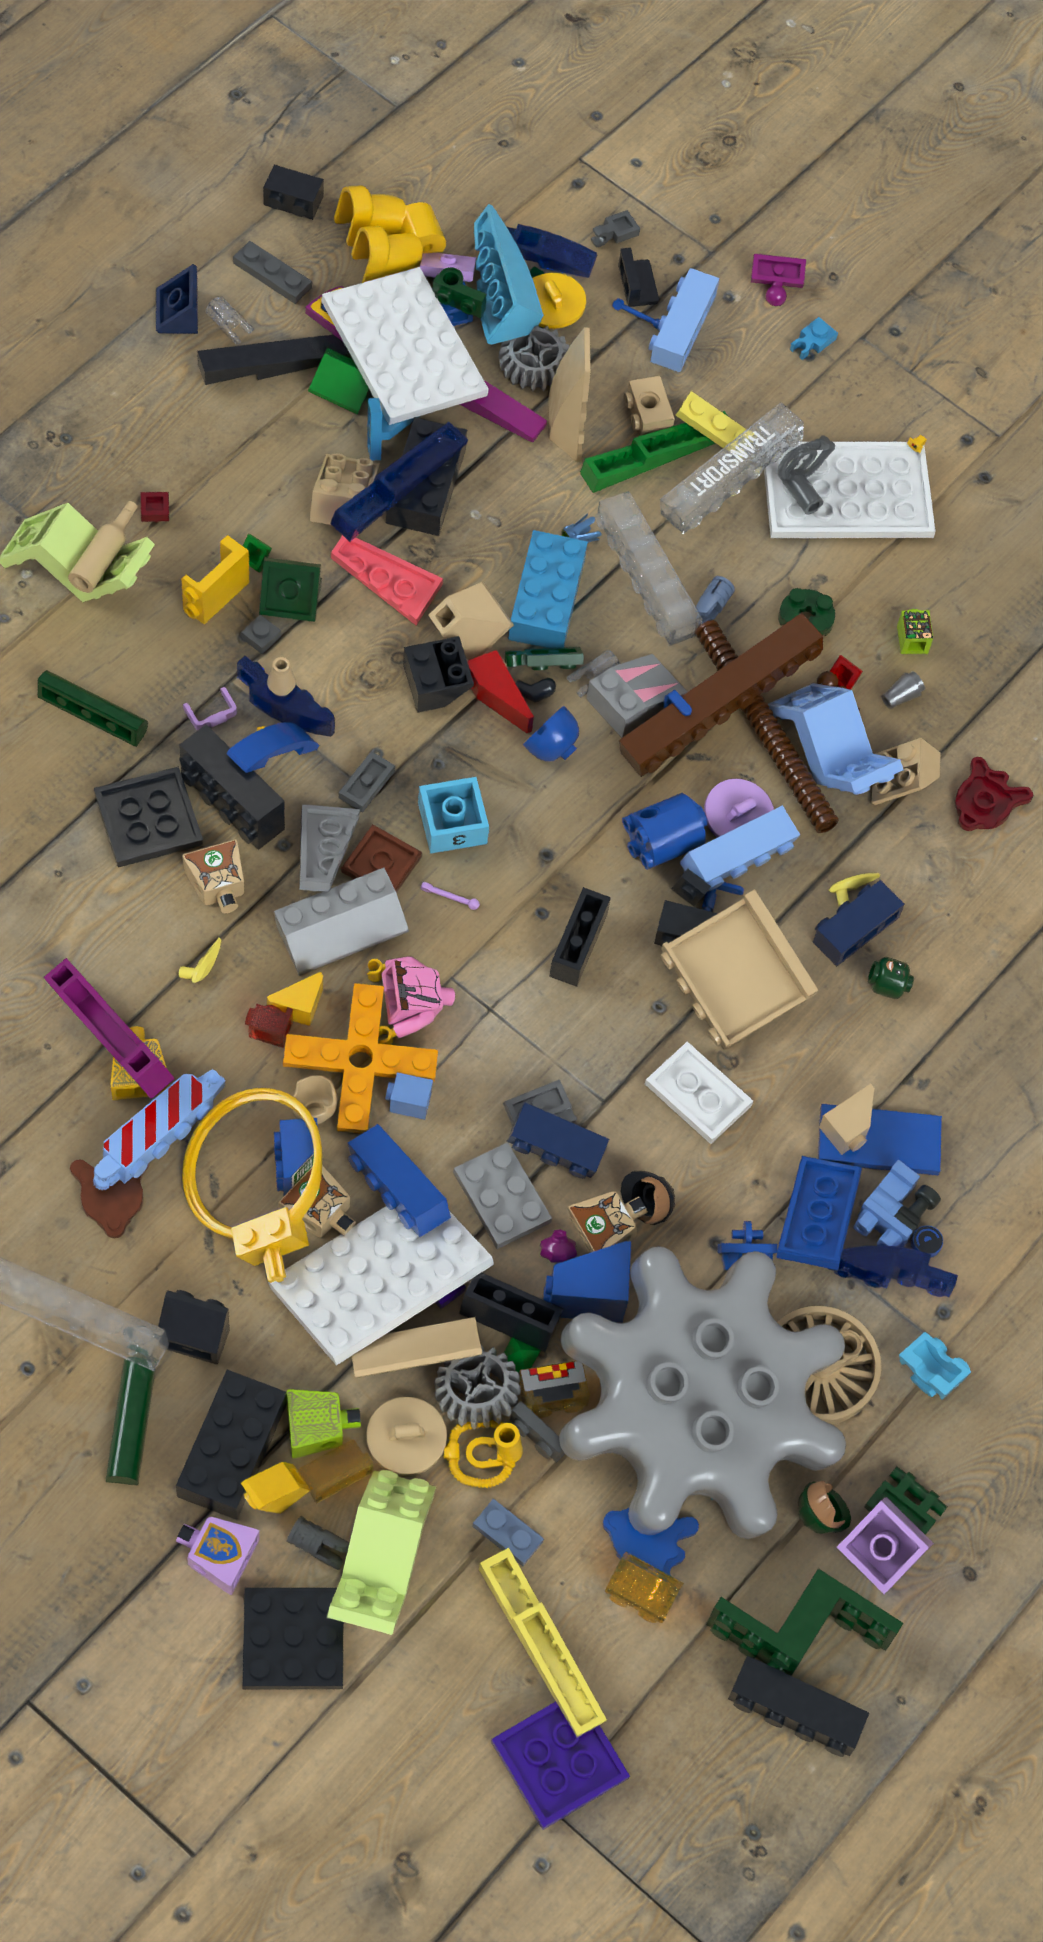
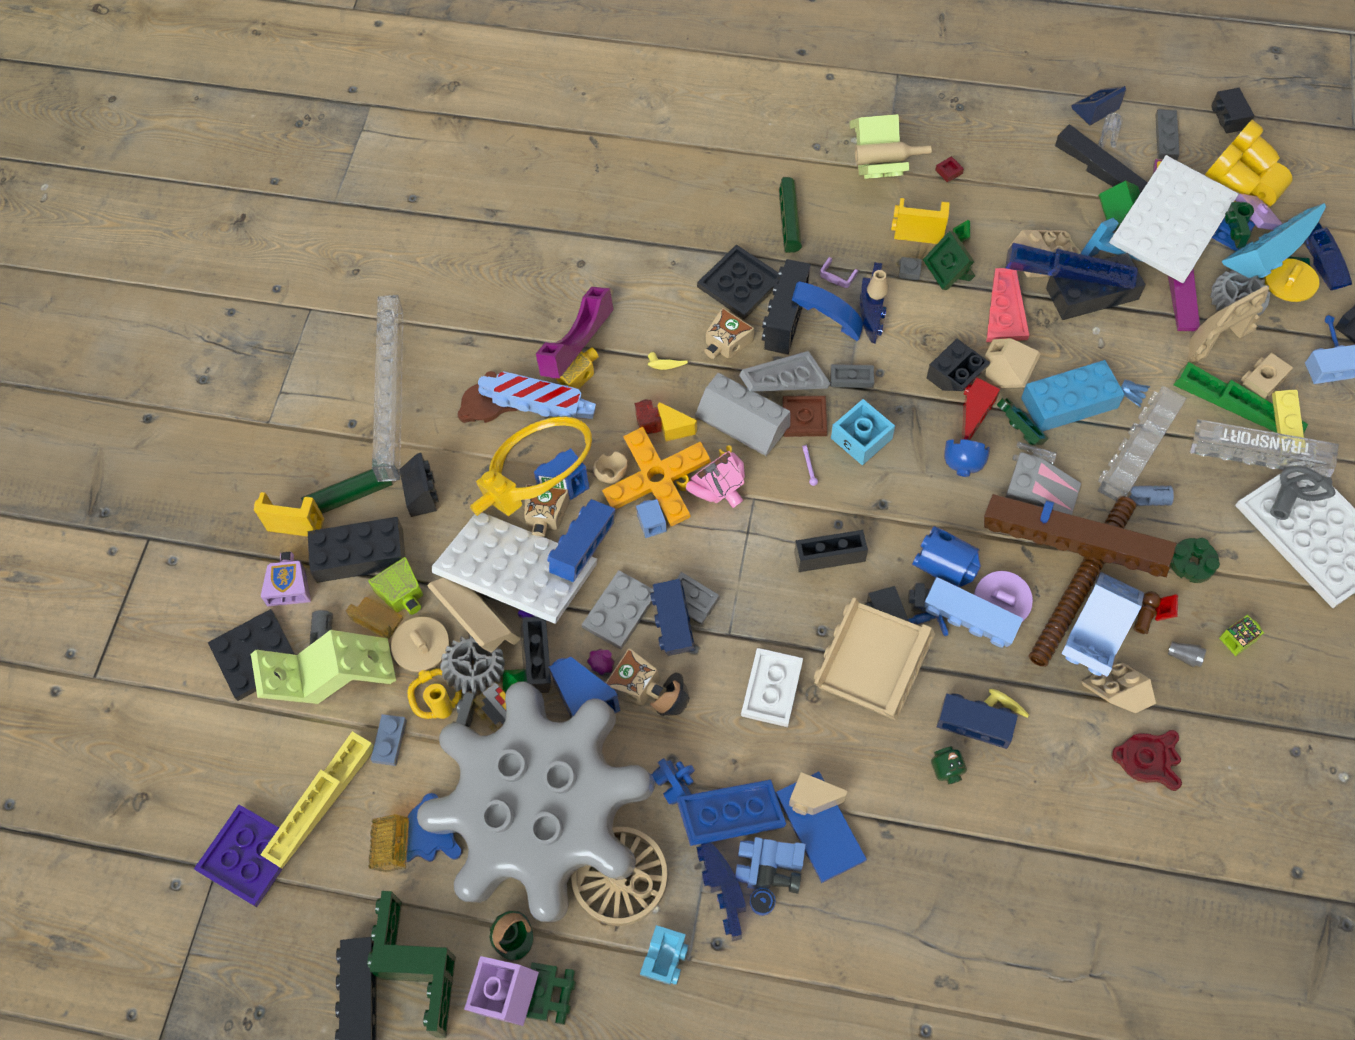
camera: 70 degrees right, 0 degrees up
(153, 1488) = (288, 519): none -> yellow panel
(275, 1488) = (335, 585): yellow slope -> none
(538, 690) = (994, 432): black arm -> none

